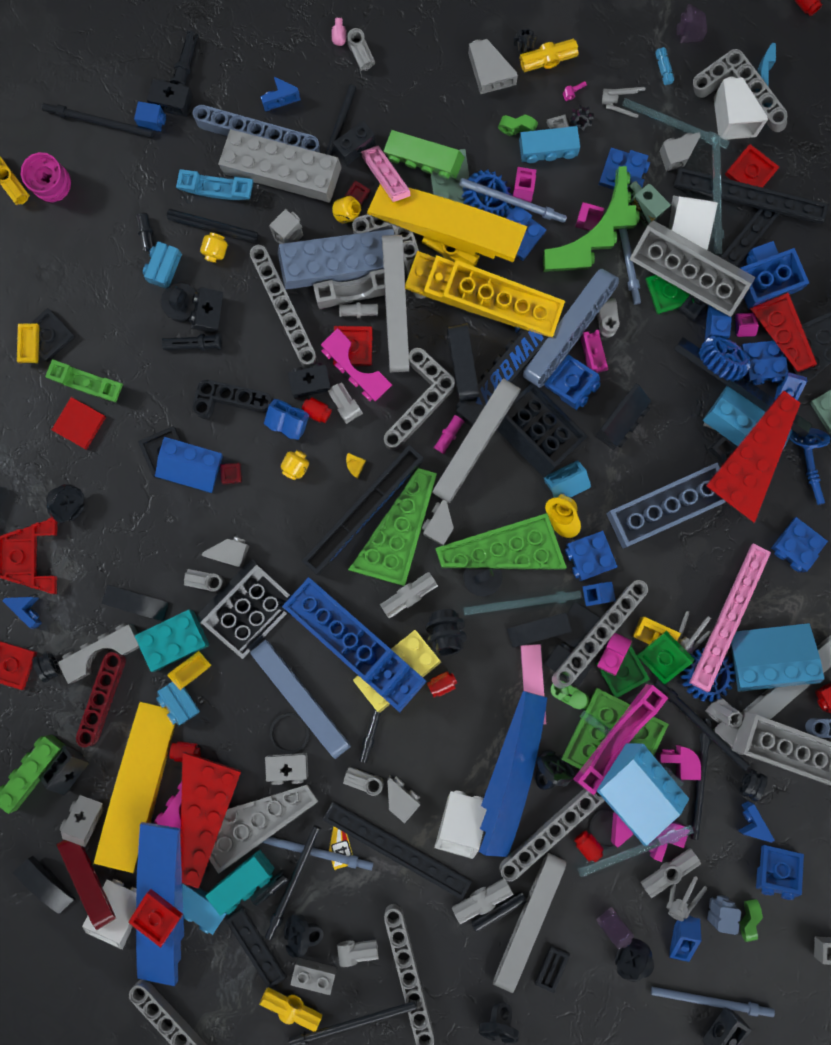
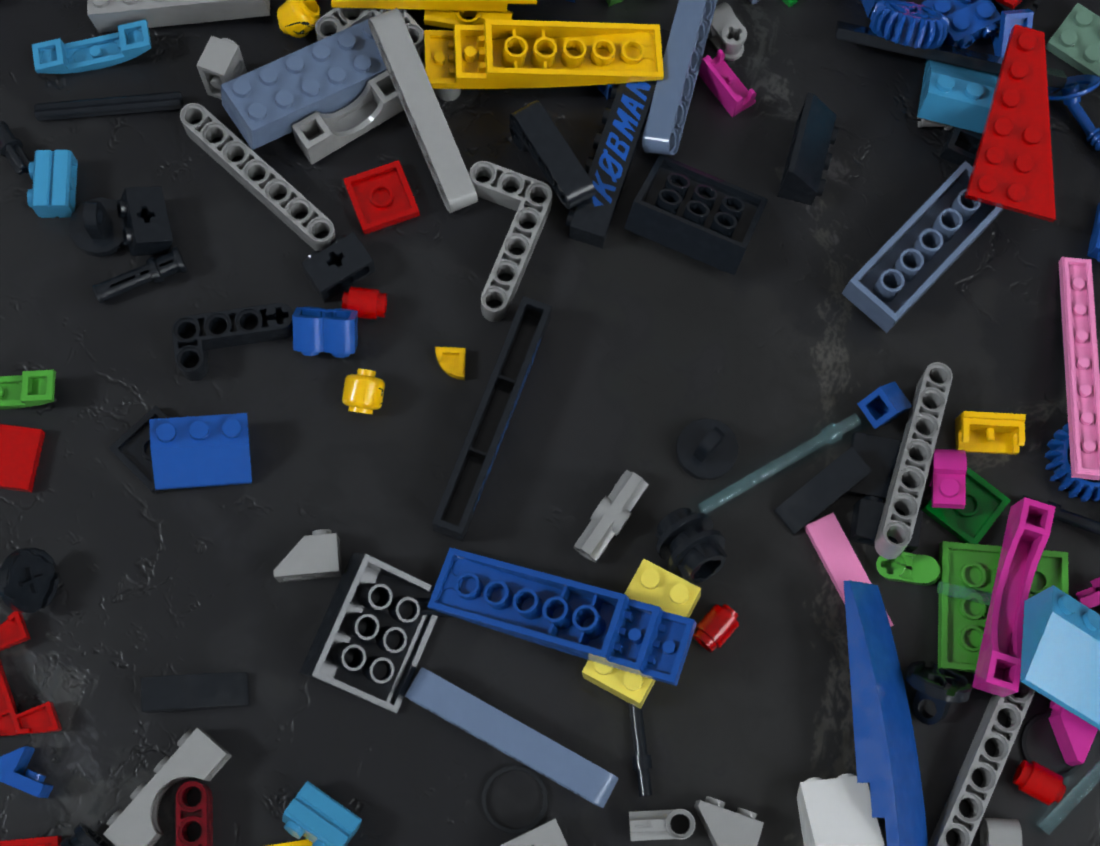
camera: 30 degrees left, 10 degrees down
(172, 640) = (274, 727): teal brick -> none
(189, 670) = (320, 762): yellow tile -> none
(203, 580) = (288, 616): light grey piece -> none
(213, 247) = (122, 132): yellow head -> none
(231, 473) = (270, 442): dark red tile -> none
(338, 348) = (431, 236): dark pink arch -> none
(346, 406) = (409, 283): light grey piece -> none
(358, 310) = (370, 144): light grey pin -> none
(394, 541) = (556, 449): bright green wing -> none
(440, 525) = (615, 396): light grey slope -> none
(449, 434) = (572, 267): dark pink pin -> none
(476, 440) = (618, 255): light grey beam -> none
(514, 546) = (735, 385): bright green wing -> none
(563, 516) = (786, 317): yellow piece -> none
(568, 480) = (769, 269): dark azure panel -> none
(573, 382) = (717, 132): blue plate -> none
(590, 556) = (847, 360): blue plate -> none
(665, 657) = (1019, 458): green tile -> none
(688, 644) = (1040, 431): light grey plant -> none

